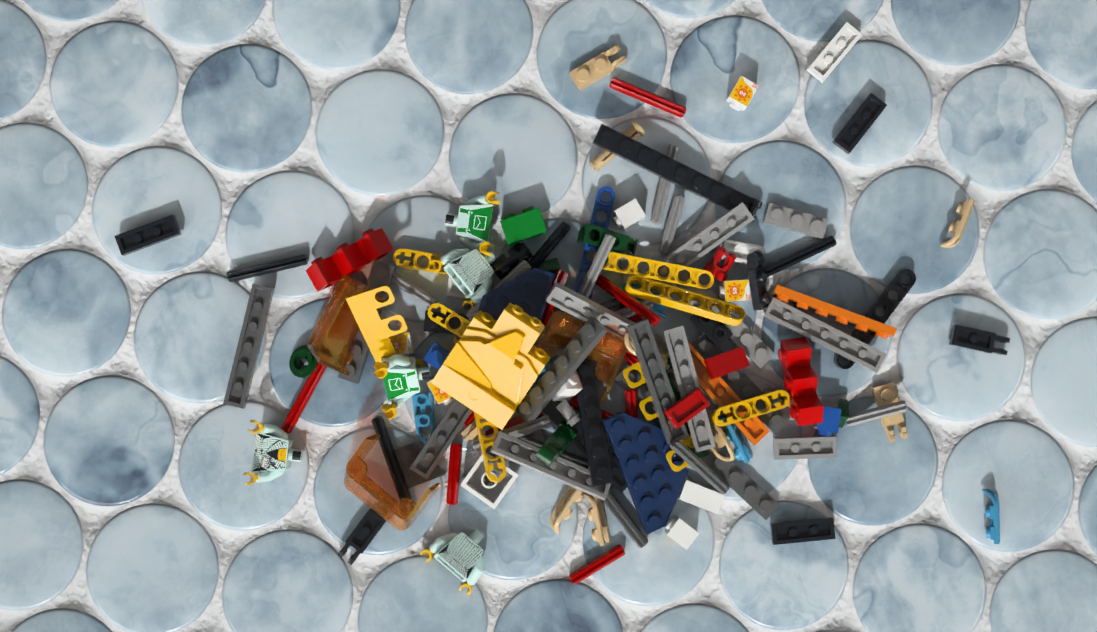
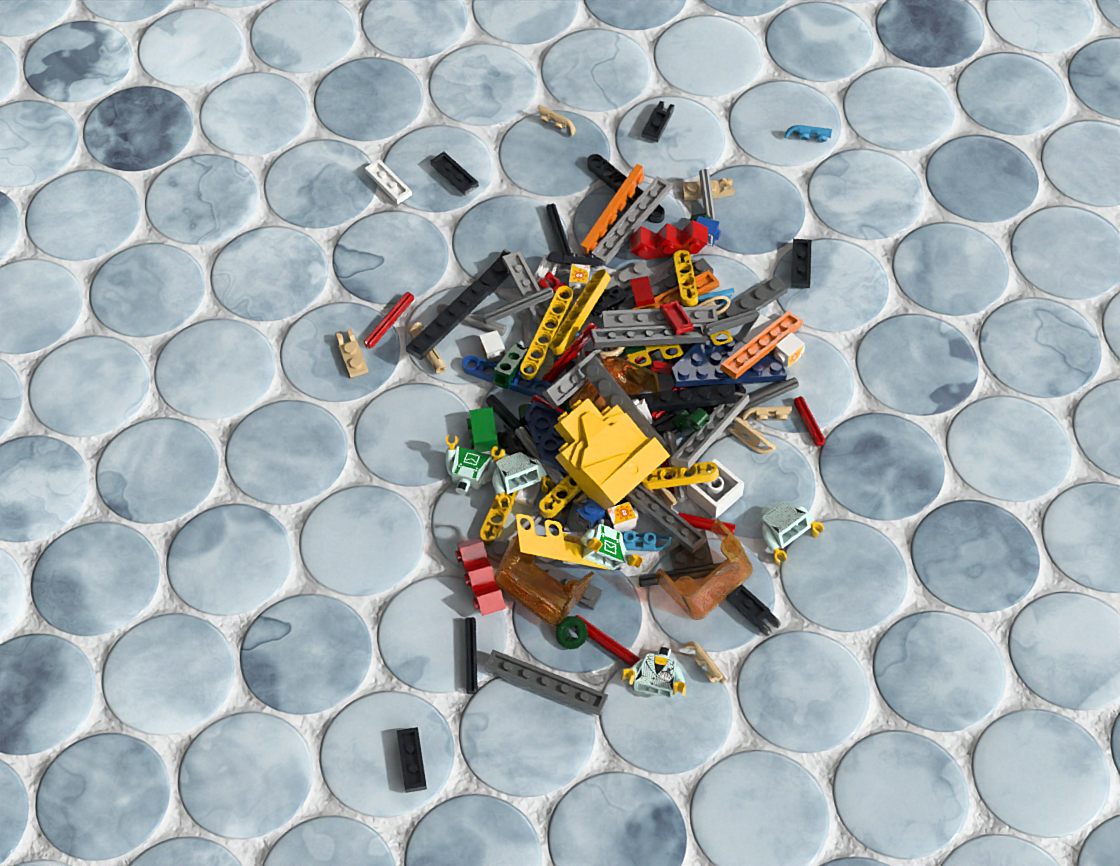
camera: 80 degrees left, 30 degrees down
(299, 492) = (703, 658): none -> tan piece
(568, 413) = (664, 415): light grey pin -> none
(597, 265) = (530, 368): light grey axle -> none
(671, 225) = (514, 321): light grey axle -> none
(675, 503) = (760, 345): none -> orange plate
(681, 232) = (518, 305): none -> dark grey axle
(742, 94) = (405, 249): brick -> none
(795, 221) = (527, 230): light grey plate -> none
(805, 447) = (728, 251): light grey plate -> none

